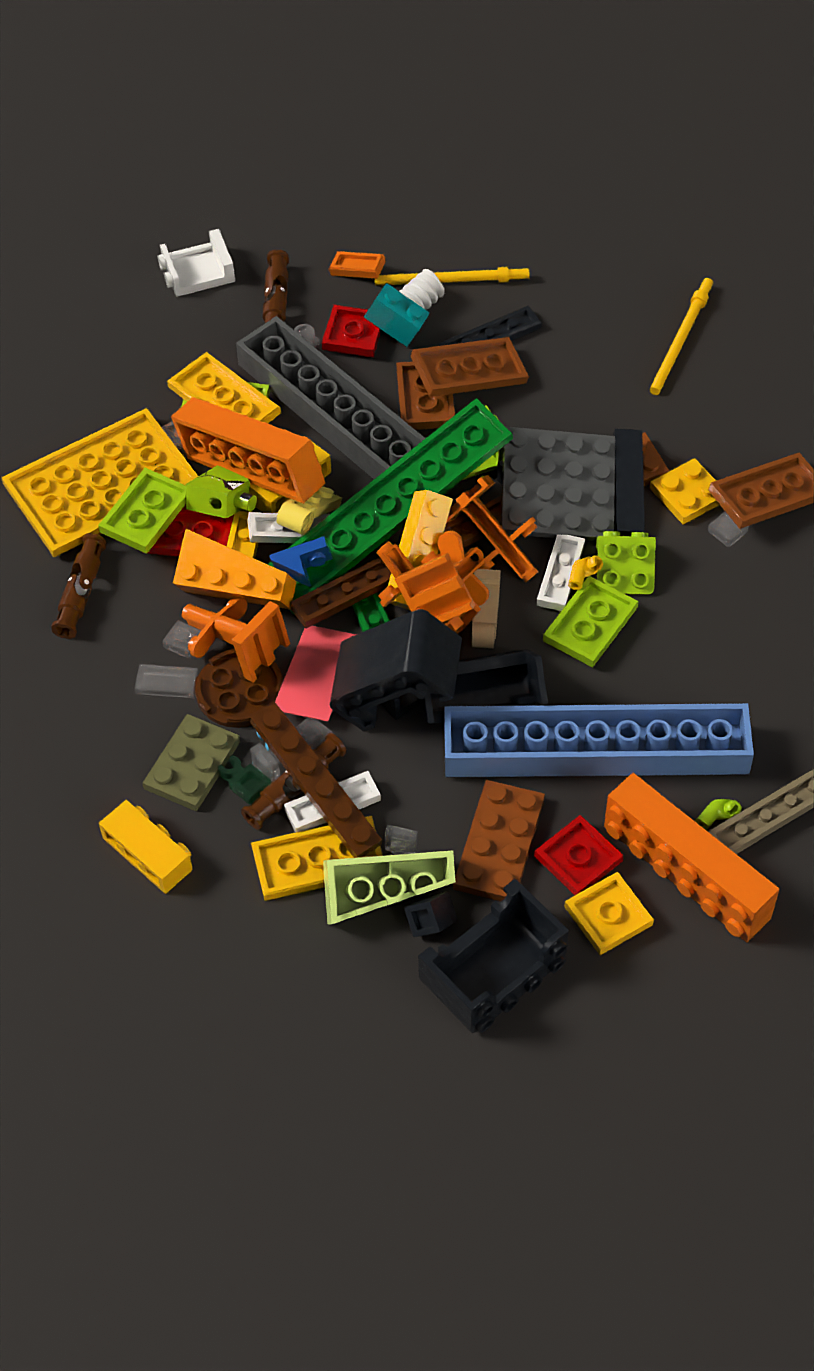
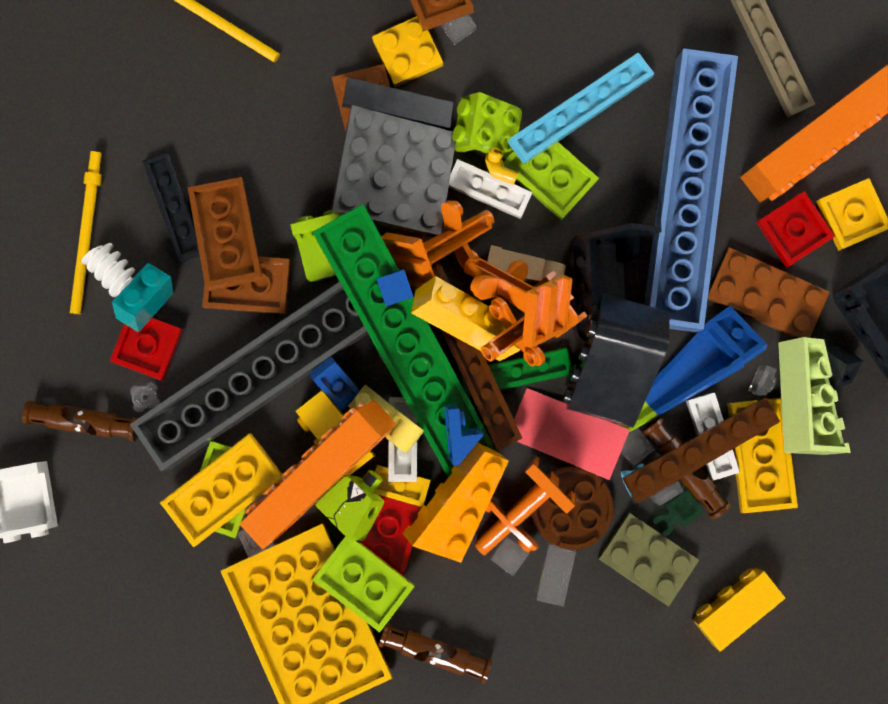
camera: 85 degrees left, 30 degrees up
(341, 466) = (335, 383): none -> blue slope
(357, 264) = (52, 328): orange tile -> none
(413, 783) = (707, 359): none -> blue plate
(436, 474) = (394, 287): none -> blue tile
(664, 633) = (580, 108): none -> medium azure plate
(718, 810) = (762, 101): lime arm -> none

